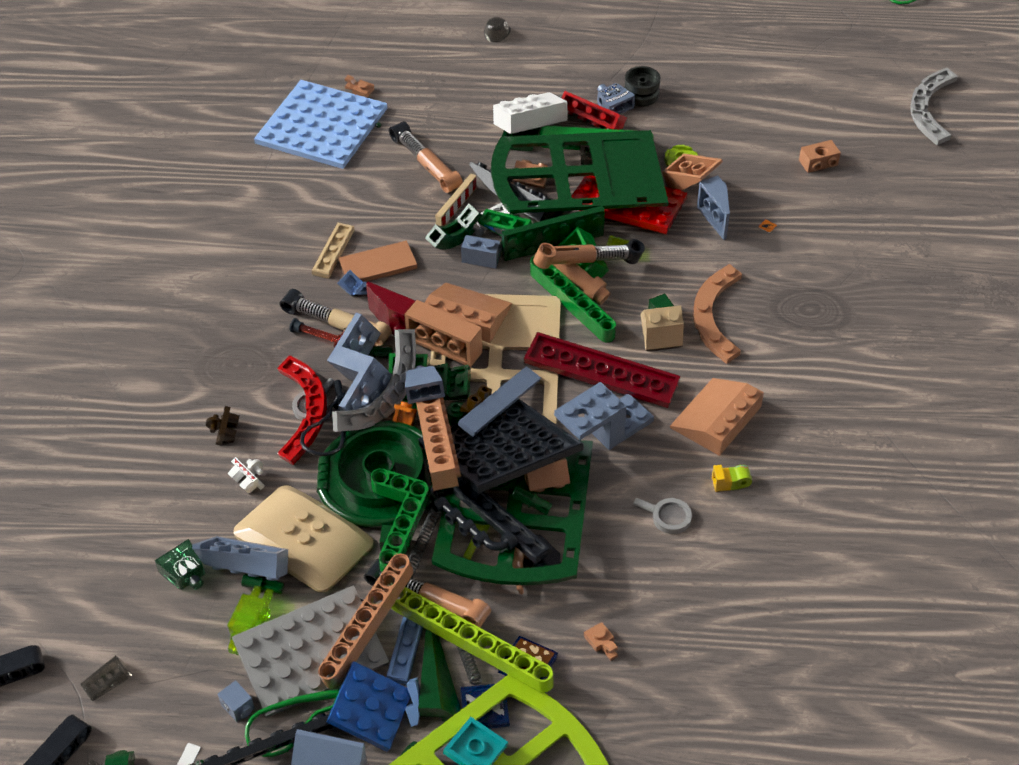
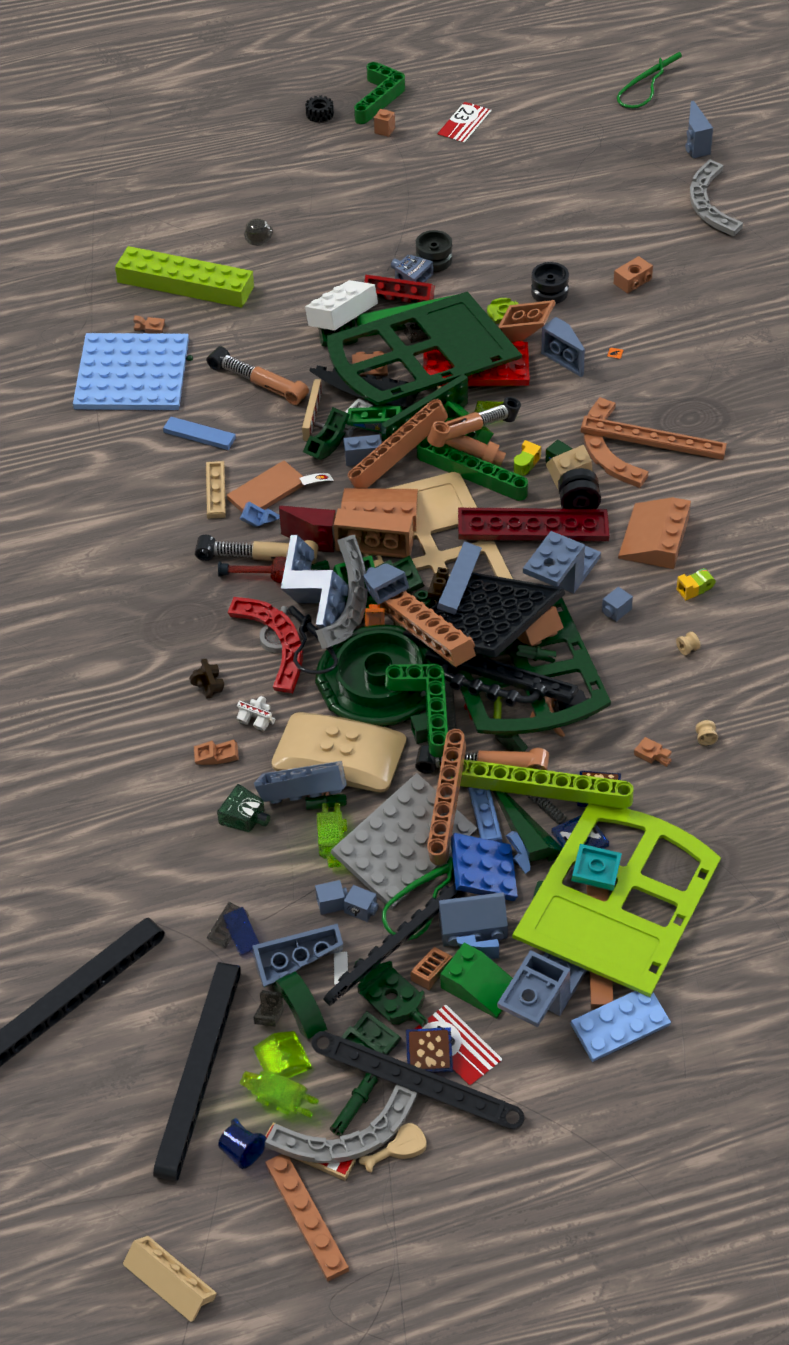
camera: 20 degrees left, 0 degrees up
(111, 690) = (240, 930): none -> clear blue tile
(138, 731) = (290, 953): none -> sand blue wedge
(191, 501) = (210, 754): none -> nougat slope
(210, 683) = (330, 897): none -> sand blue brick
(347, 194) = (199, 433): none -> medium blue tile
(411, 52) = (185, 276): none -> lime brick
(426, 265) = (315, 478): none -> white sticker
(469, 586) = (512, 742): none -> dark green slope
(509, 256) = (397, 445): none -> nougat beam
(629, 304) = (527, 459): none -> lime leg
(642, 474) = (617, 604): none -> sand blue brick
(659, 349) = (579, 489): none -> black wheel
(665, 638) = (706, 732): none -> tan wheel
(669, 514) = (655, 631): light grey piece -> none
(693, 537) = (688, 643): none -> tan wheel
(734, 143) = (550, 282): none -> black wheel
(763, 318) = (653, 437): none -> nougat tile
(945, 40) = (698, 133): none -> sand blue slope

